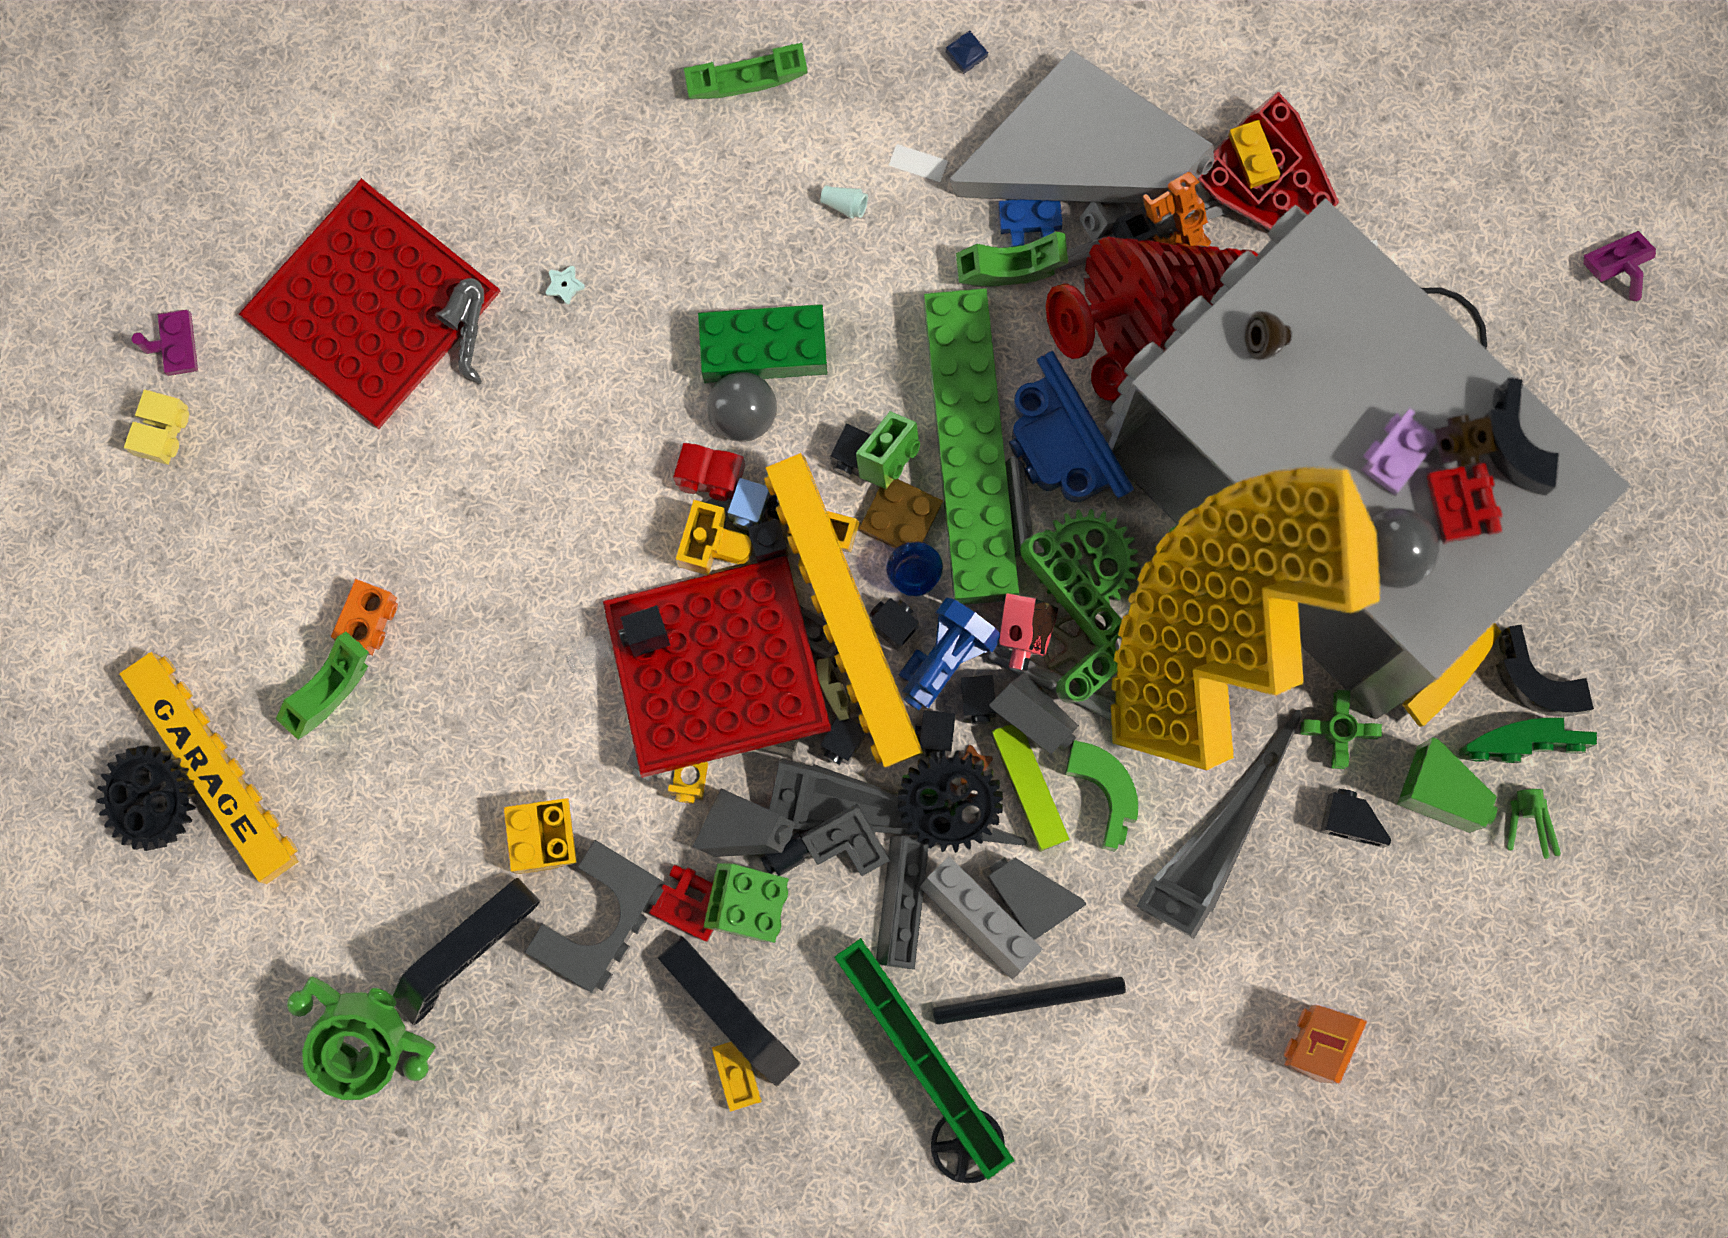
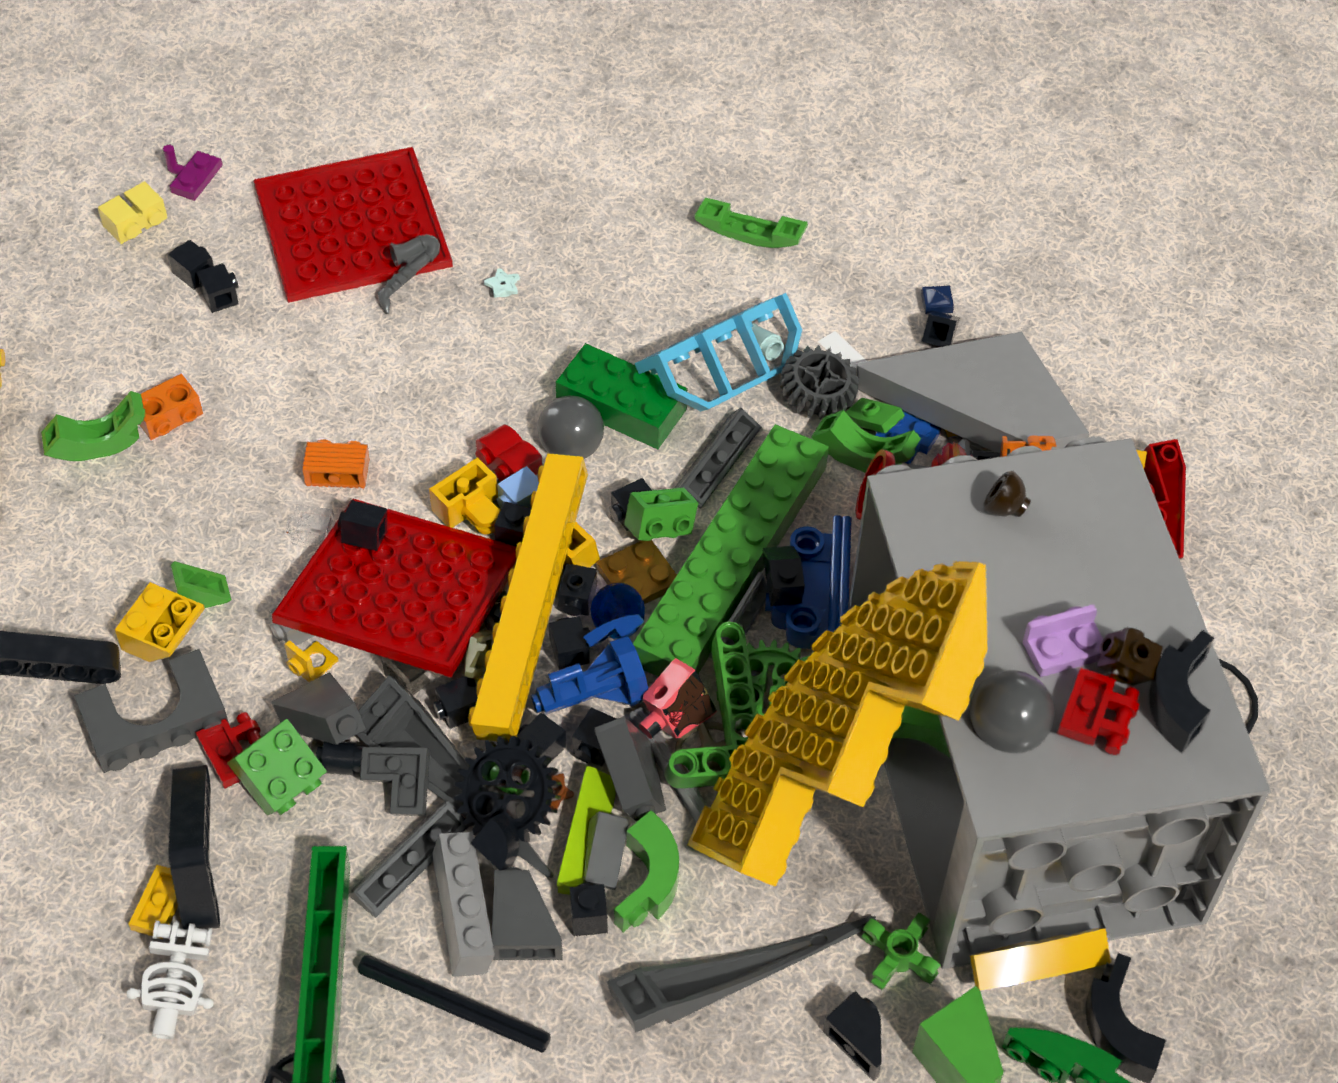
camera: 30 degrees right, 25 degrees down
(260, 448) = (187, 260): none -> black brick
(306, 458) = (218, 287): none -> black brick
(542, 775) = (201, 585): none -> bright green slope
(562, 576) = (336, 464): none -> orange brick
(808, 223) = (721, 331): none -> medium azure plate
(816, 1156) = (170, 1002): none -> white torso
(866, 568) = (577, 590): none -> black brick
(885, 351) = (719, 455): none -> dark grey slope
(928, 593) = (624, 626): none -> blue slope
(947, 208) = (802, 376): none -> dark grey gear
(975, 851) = (498, 841): none -> black brick
(992, 85) = (940, 329): none -> black brick
(997, 224) = (875, 415): none -> bright green plate
(1037, 448) = (784, 575): none -> black slope
(1056, 795) = (604, 849): none -> dark grey slope
(1080, 855) = (588, 909): none -> black brick

